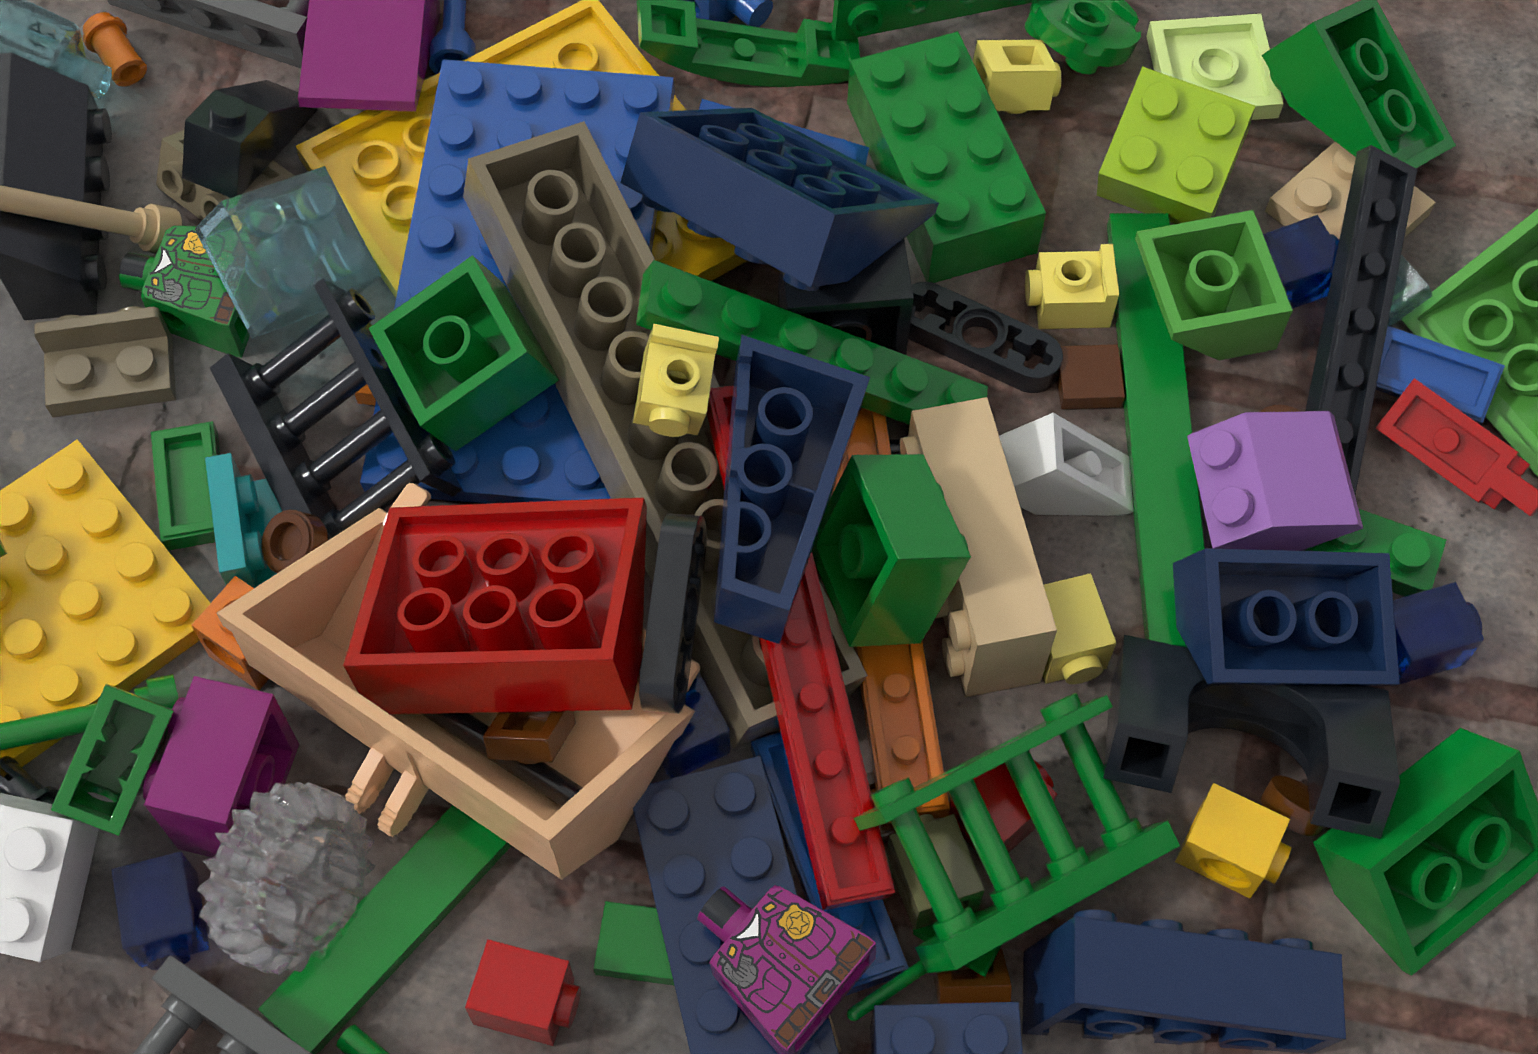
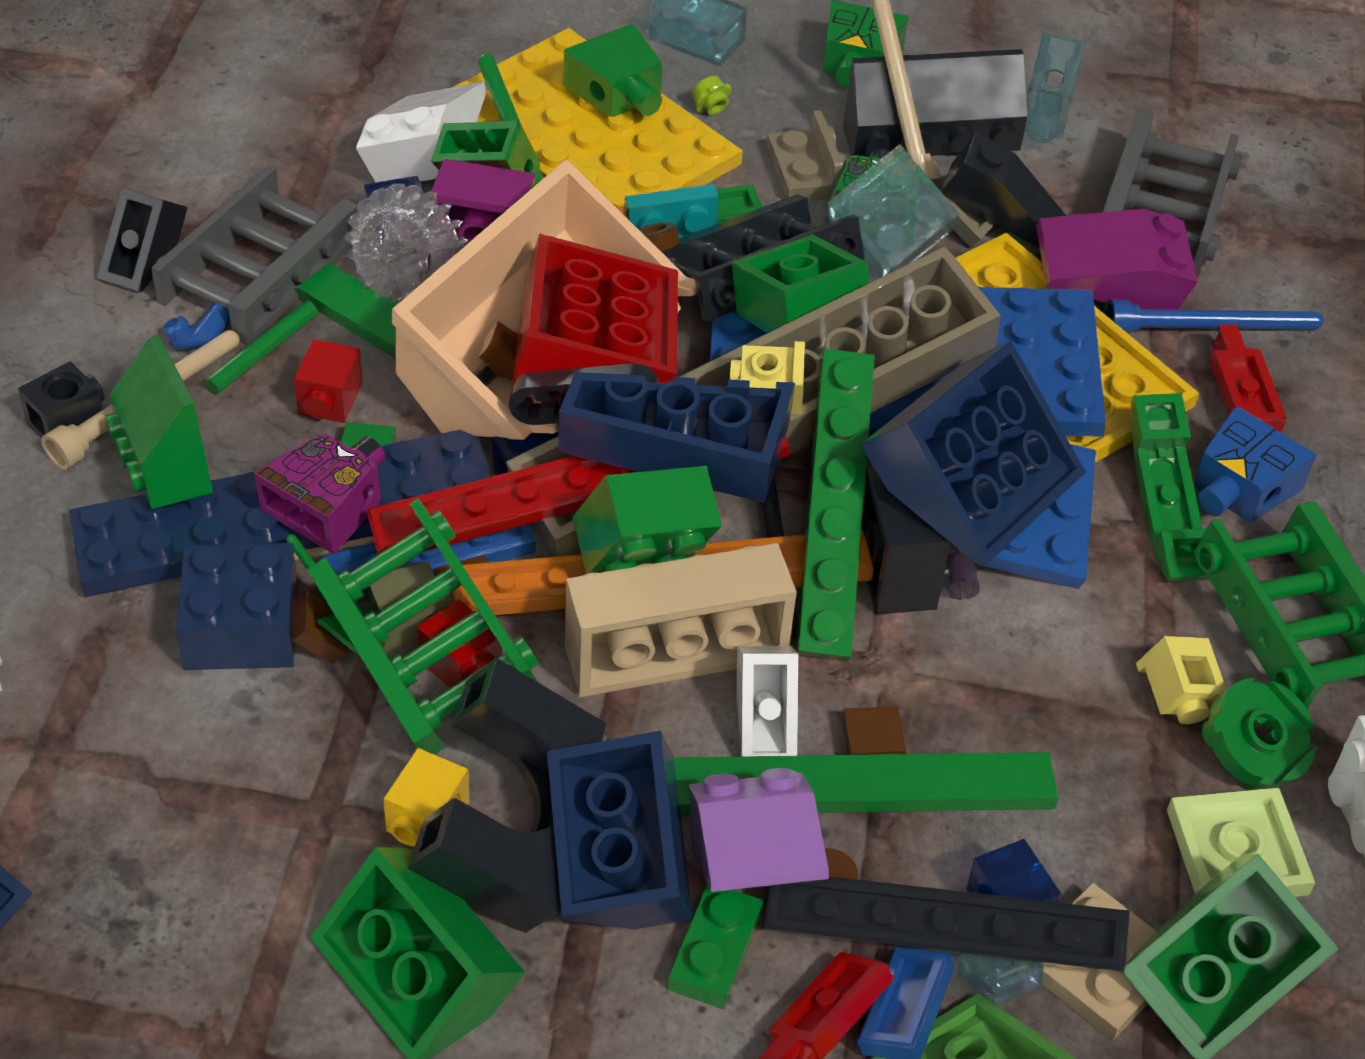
camera: 85 degrees right, 15 degrees down
(108, 39) = (1086, 137): orange pin -> none
(942, 136) = (1076, 622): green brick -> none
(988, 360) = (901, 636): black beam -> none
(1074, 289) = (957, 709): light yellow brick -> none
(1083, 631) = (619, 694): light yellow brick -> none
(1174, 148) = (1115, 786): lime brick -> none
(1183, 985) = (299, 749): dark blue wedge -> none
(1217, 285) = (963, 802): bright green slope -> none
(1435, 632) = (623, 964): clear blue brick -> none

